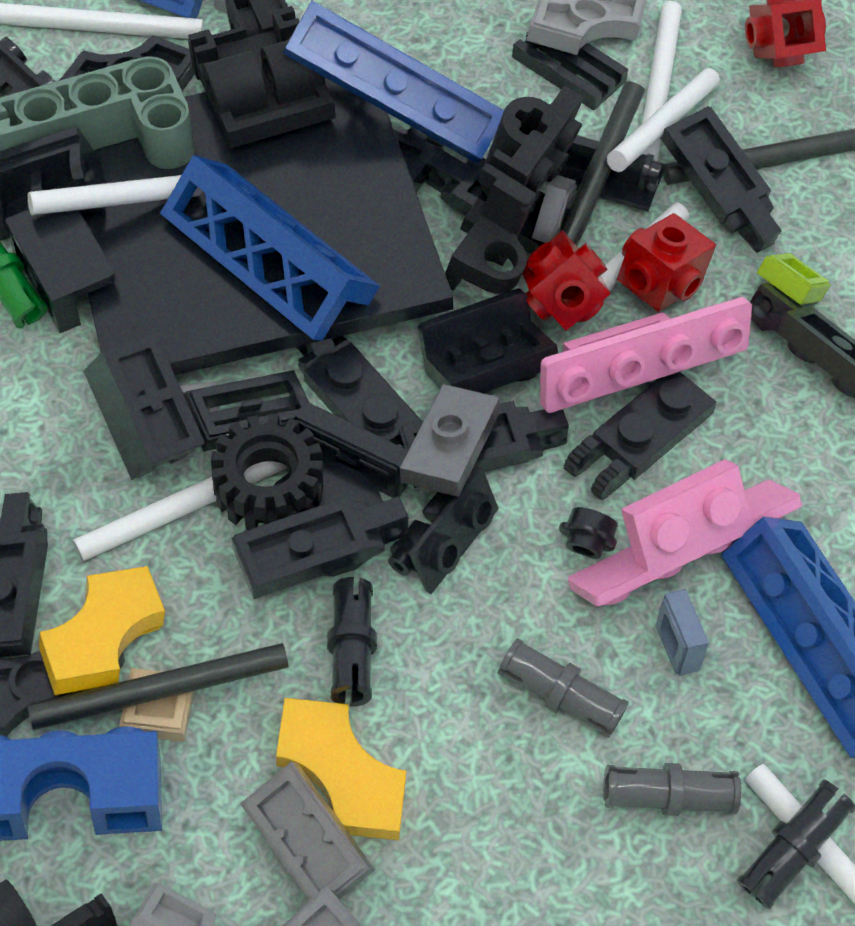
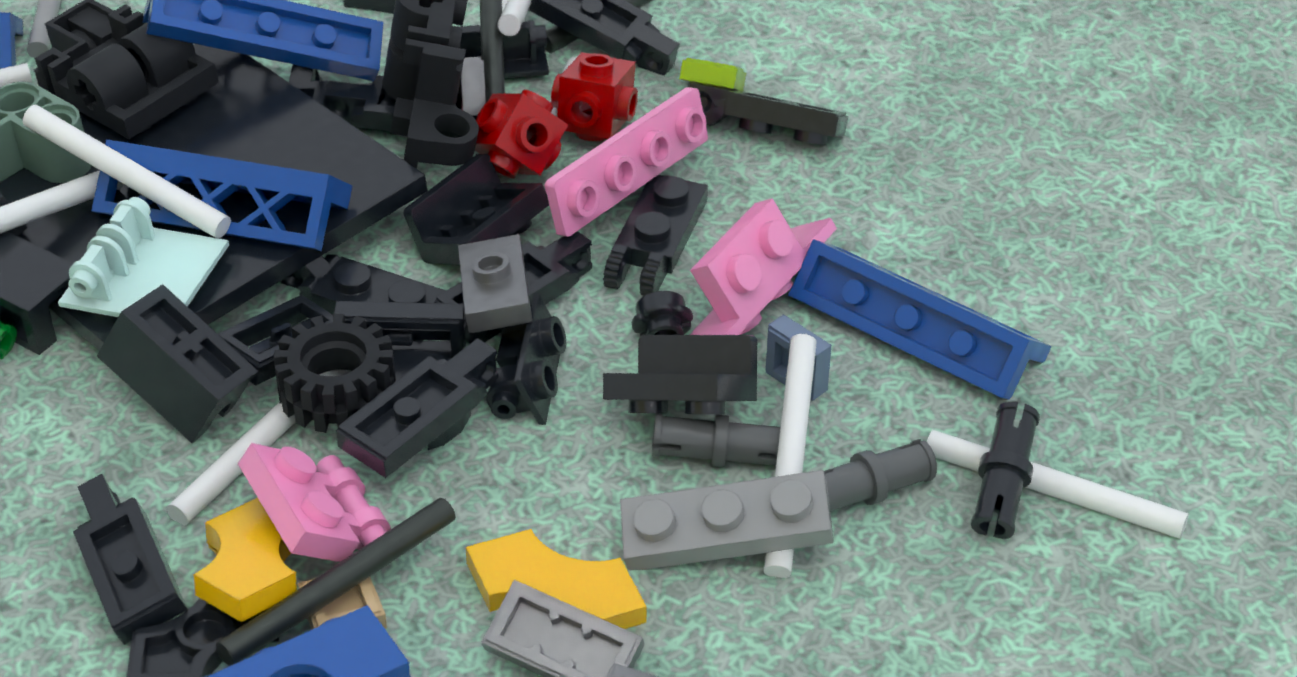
camera: 25 degrees left, 15 degrees down
(164, 294) = (134, 259): none -> light aqua hinge
(165, 598) = (313, 506): none -> bright pink plate
(194, 195) = (127, 171): none -> white bar
(352, 641) = (500, 479): black pin -> none
(514, 780) = (726, 521): none -> light grey plate
(562, 615) = (688, 369): none -> black bracket
(608, 738) = (793, 431): none -> white bar

